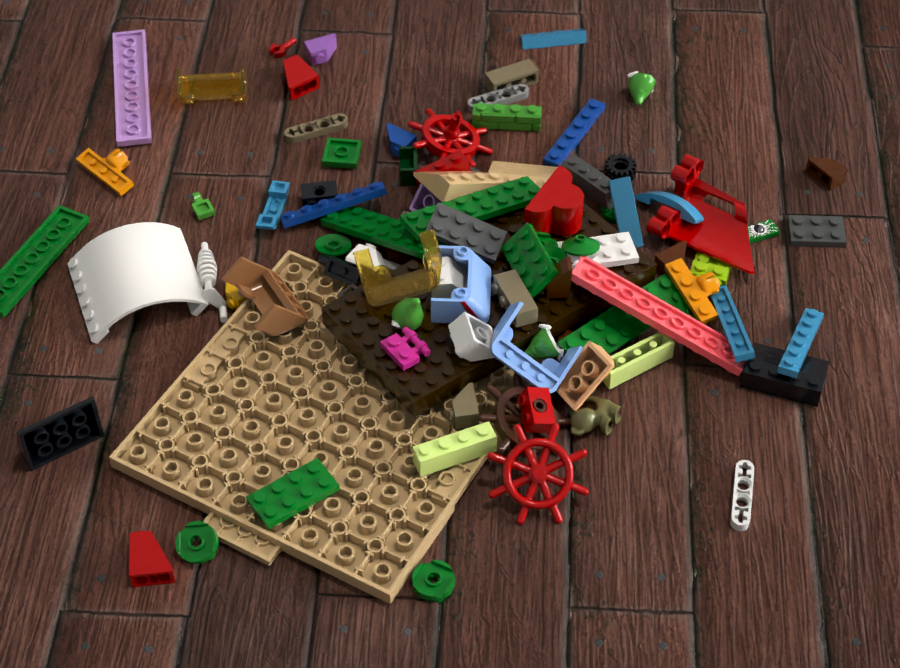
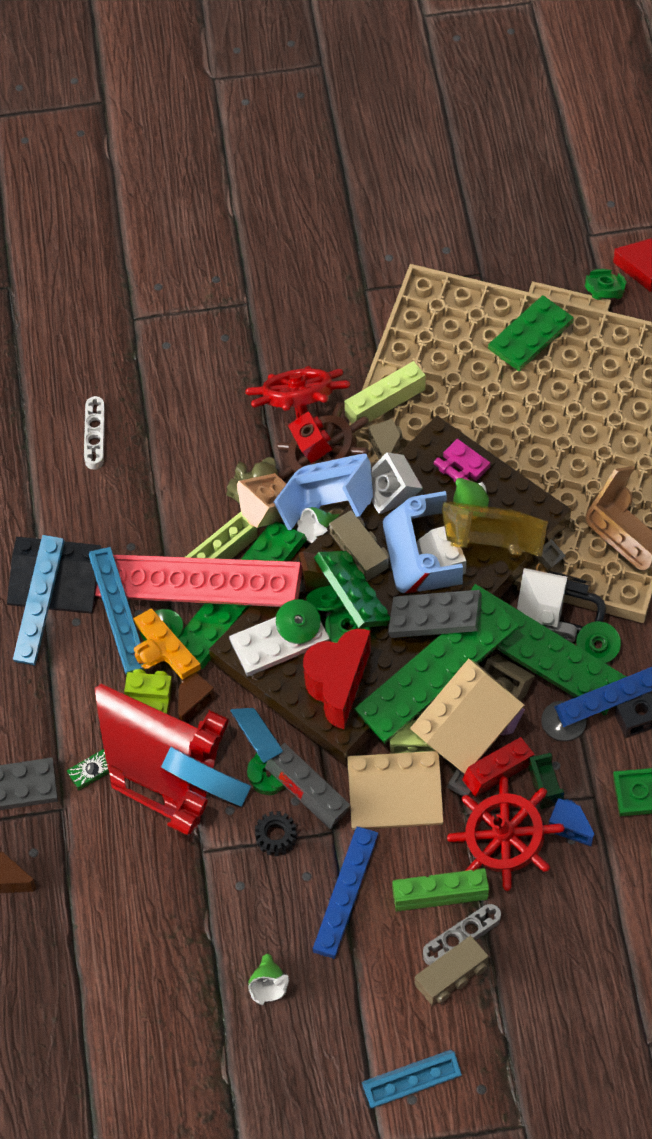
camera: 170 degrees right, 10 degrees up
(382, 205) = (553, 726): none -> dark grey dish
(433, 591) = (372, 306): green plate -> none

